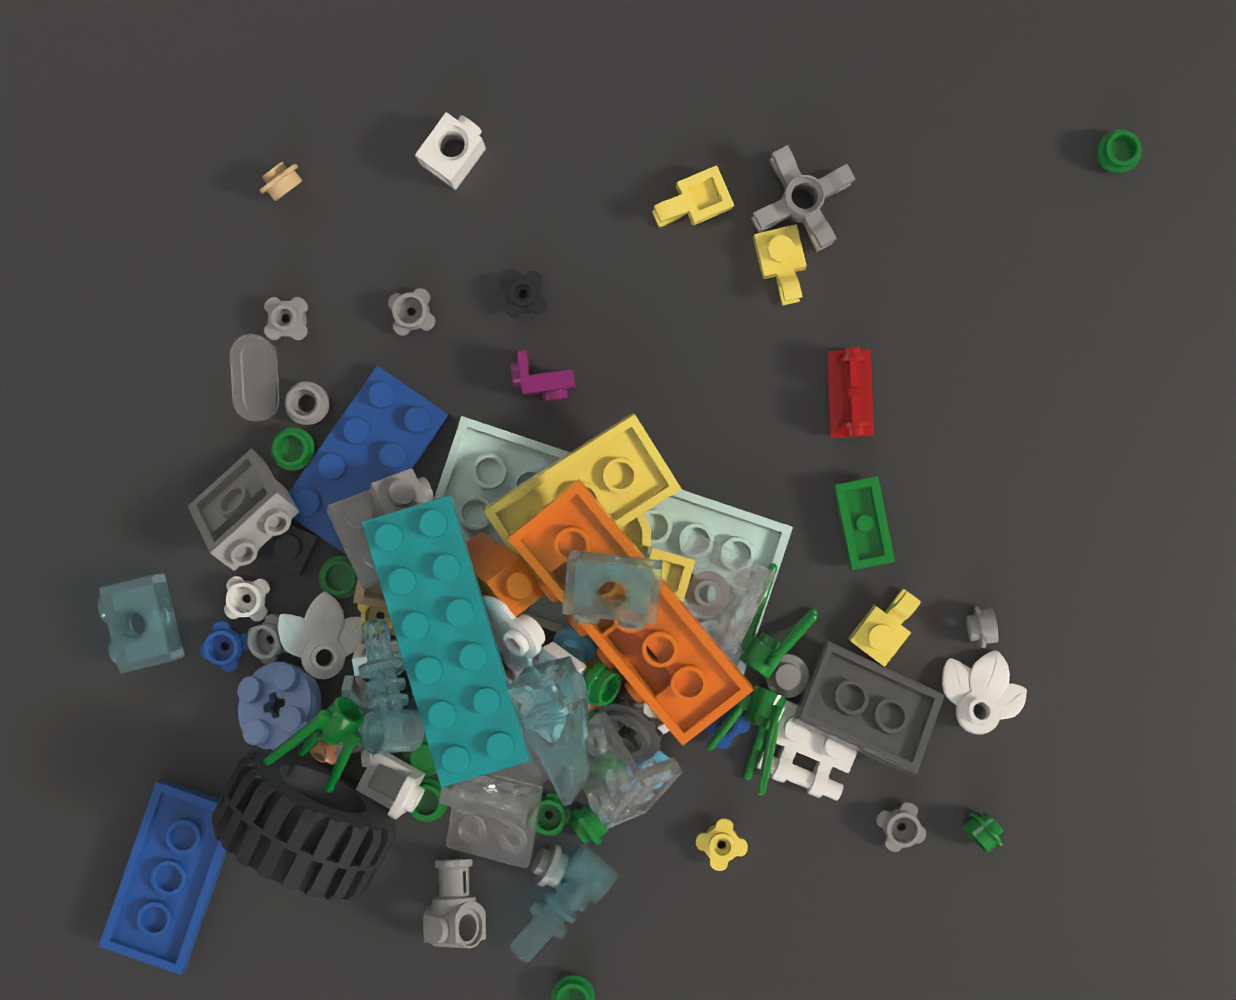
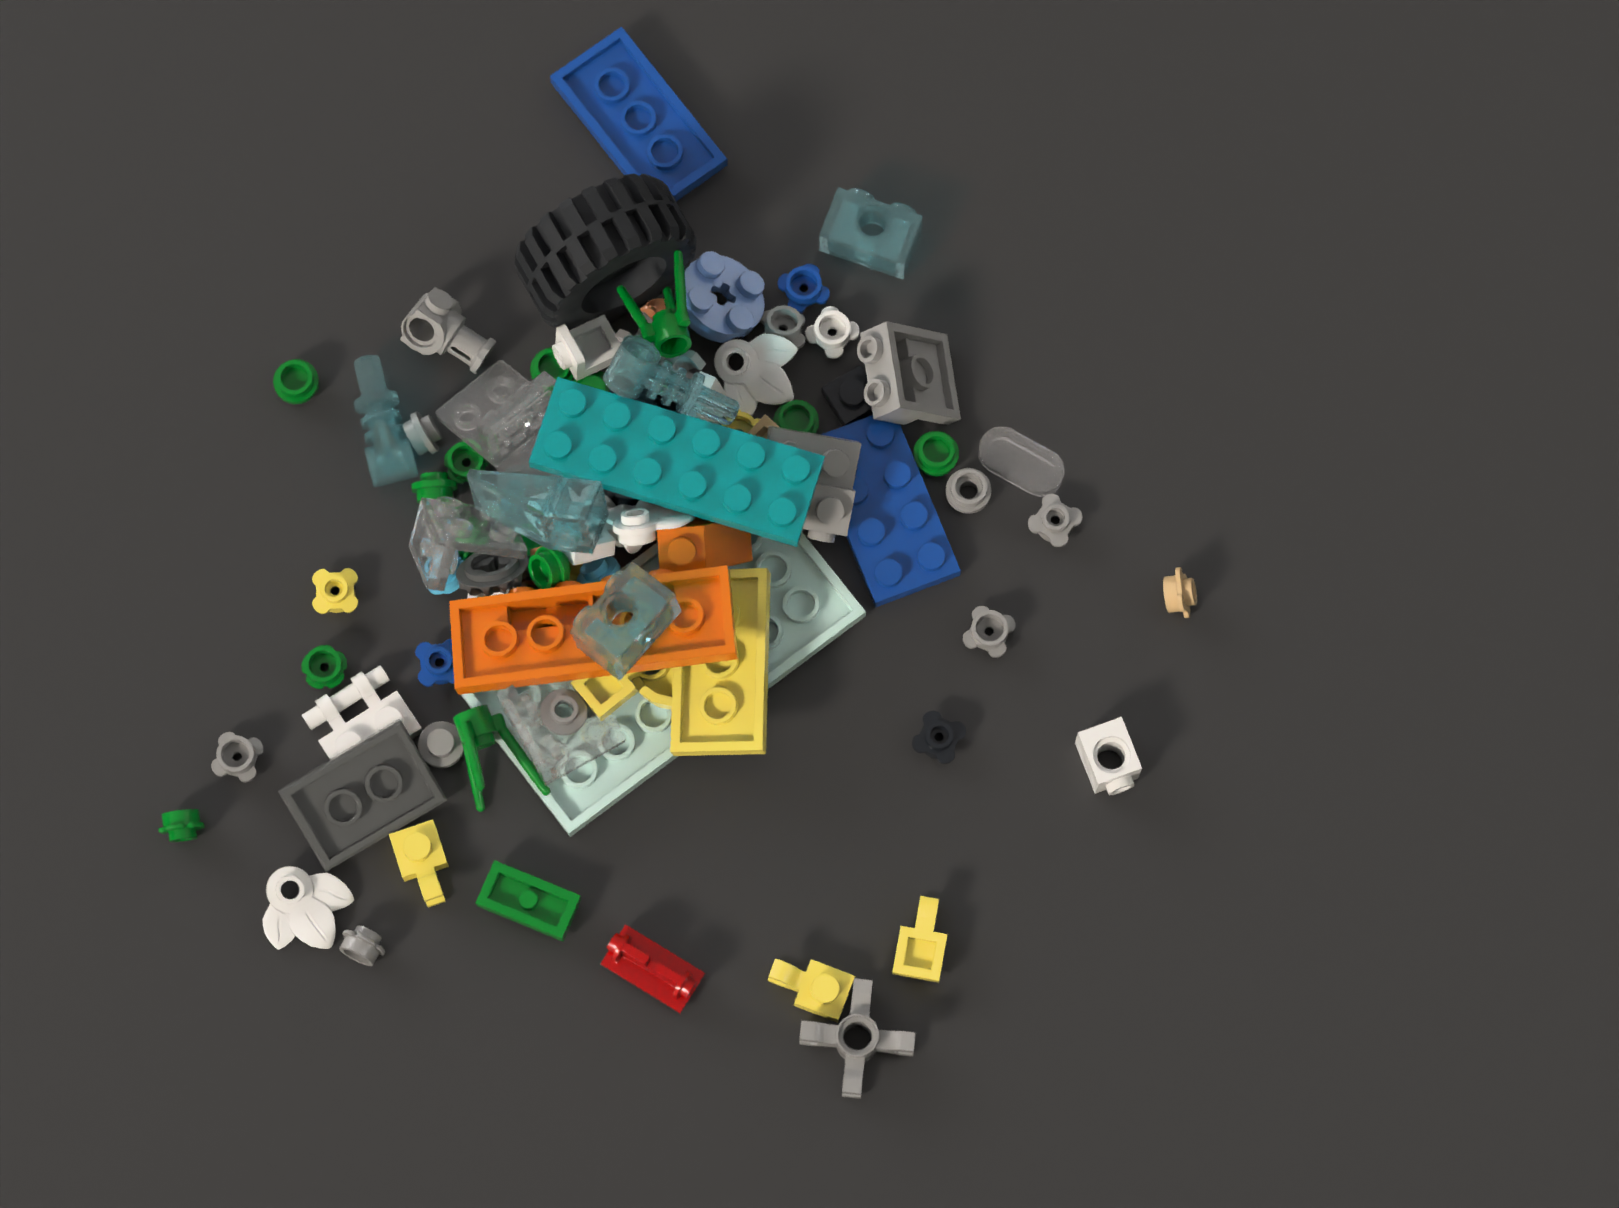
camera: 125 degrees right, 15 degrees down
(550, 385) = (840, 705): magenta bracket -> none
(766, 712) = (424, 700): green plant -> none
(797, 814) = (324, 655): none -> green plate

